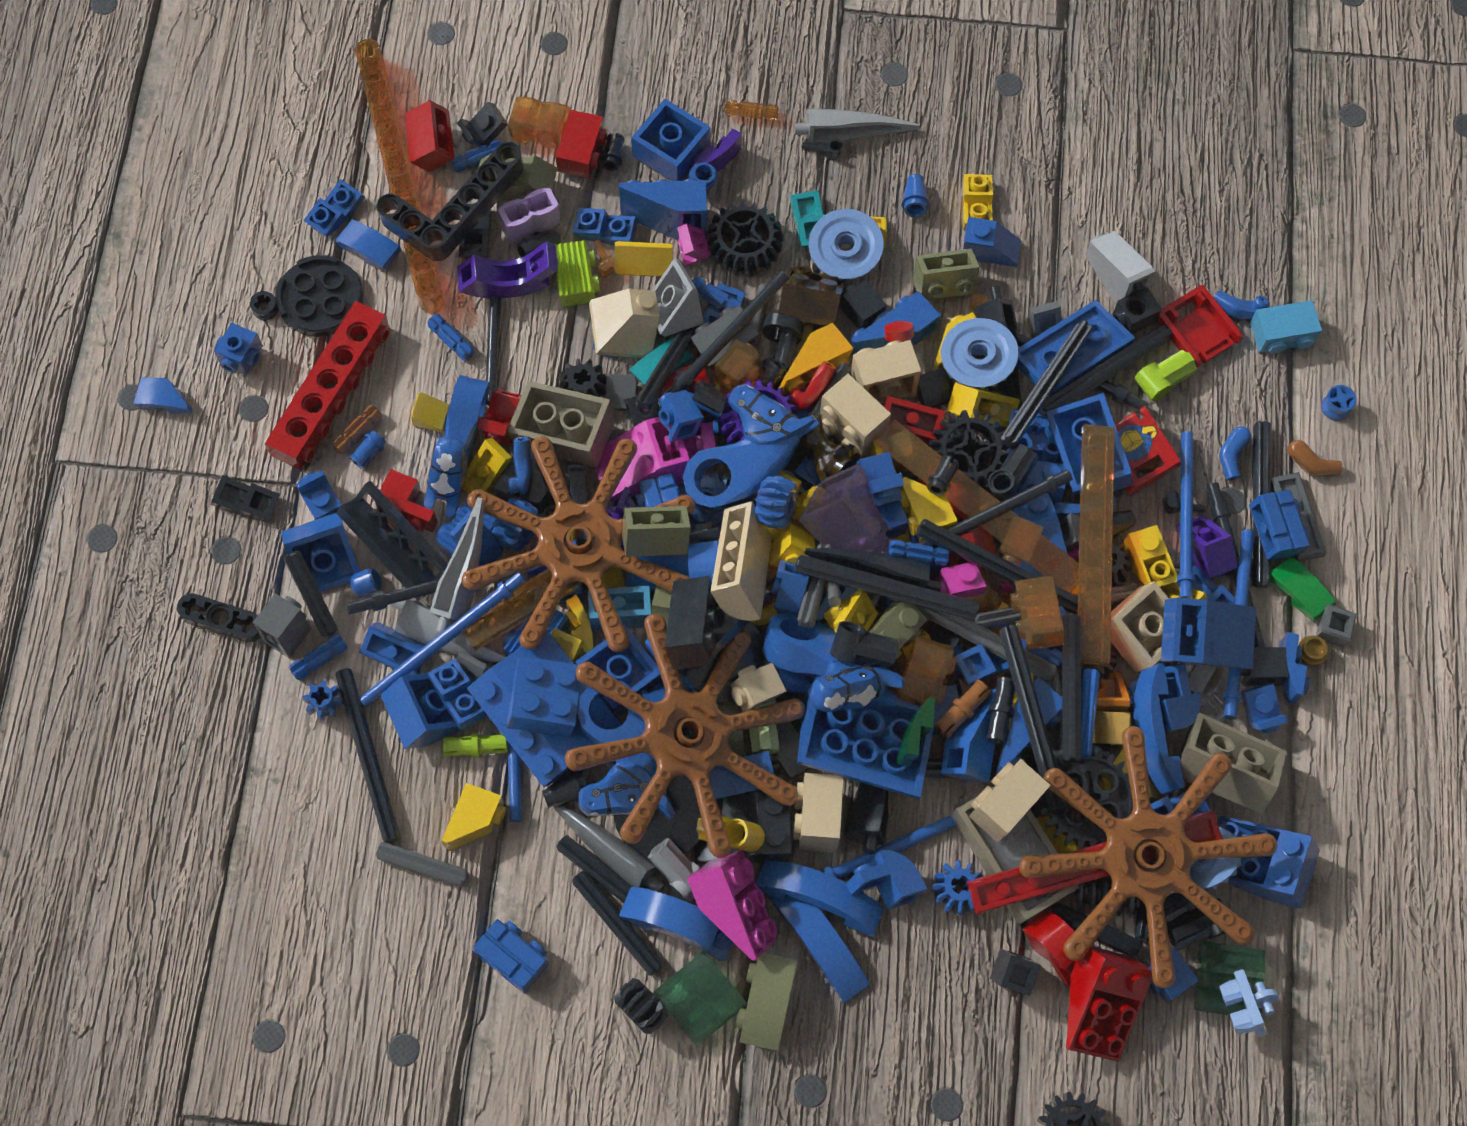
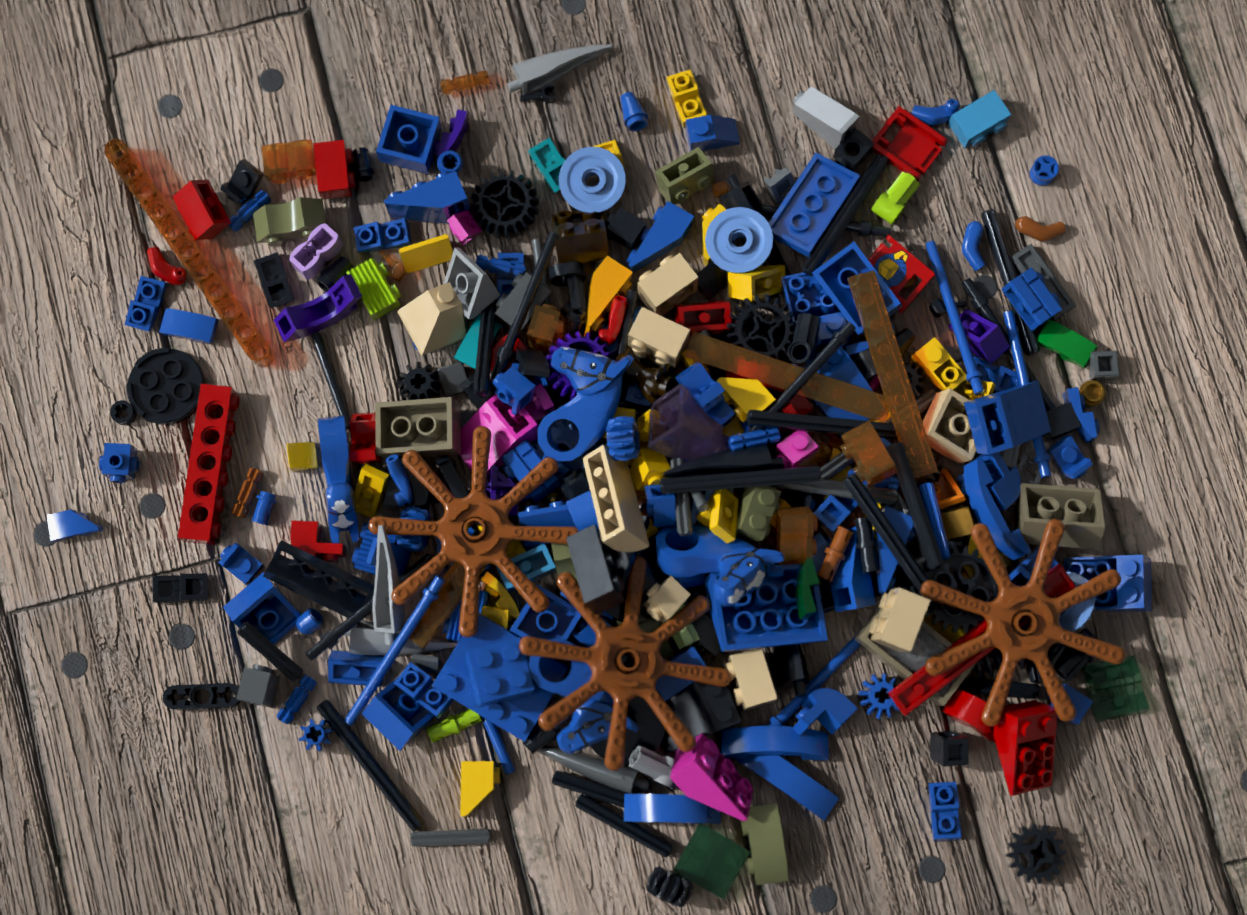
camera: 15 degrees left, 10 degrees up
(365, 180) = (163, 269): none -> red arm
(450, 337) = (292, 382): blue axle -> none
(456, 209) = (254, 271): black beam -> none
(511, 955) = (551, 884): blue brick -> none
(653, 533) = (536, 502): olive brick -> none
(735, 828) = (690, 720): yellow piece -> none
(855, 644) = (732, 539): black piece -> none
(899, 331) = (666, 245): red tile -> none
(940, 481) = (750, 372): black pin -> none
(984, 1043) = (944, 811): none -> blue slope
(1020, 540) = (831, 396): clear orange brick -> none
(1046, 384) = (804, 249): black axle -> none
(1249, 1018) = (1142, 717): light blue hips -> none

